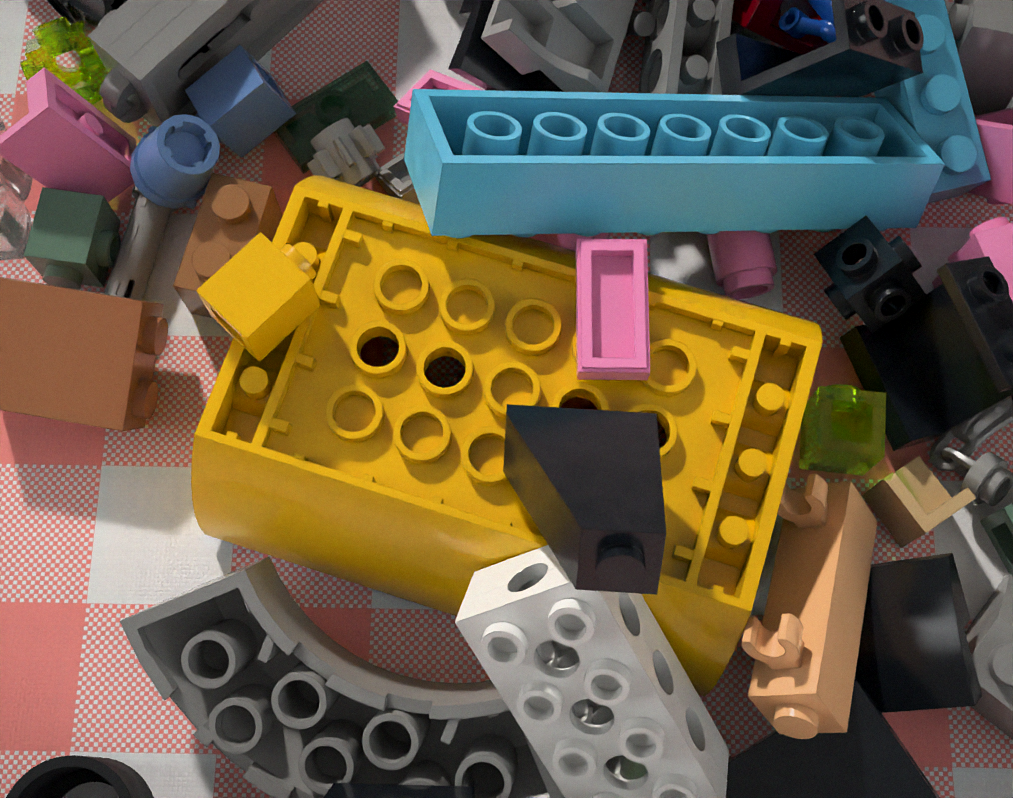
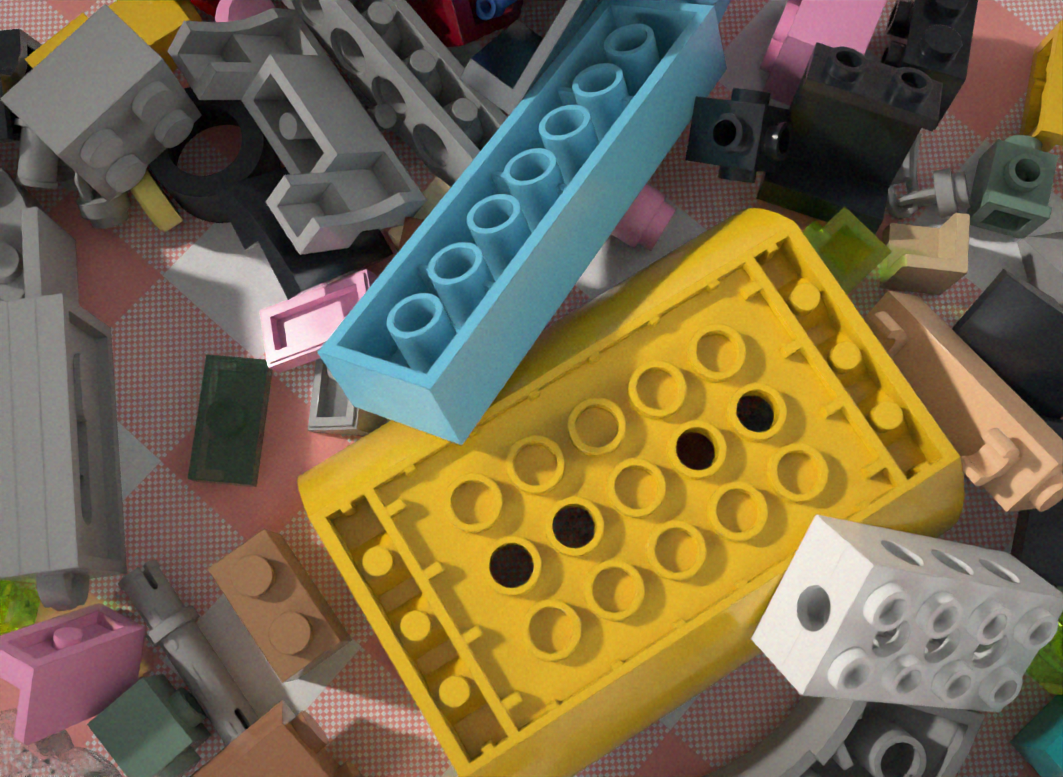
camera: 50 degrees left, 5 degrees up
(175, 161) = (167, 591): medium blue piece -> none
(240, 101) = (154, 492): medium blue brick -> none
(261, 295) = (395, 628): yellow brick -> none
(346, 153) = (282, 443): light grey gear -> none
(592, 491) = (804, 503): black slope -> none
(612, 309) = (639, 354): bright pink tile -> none

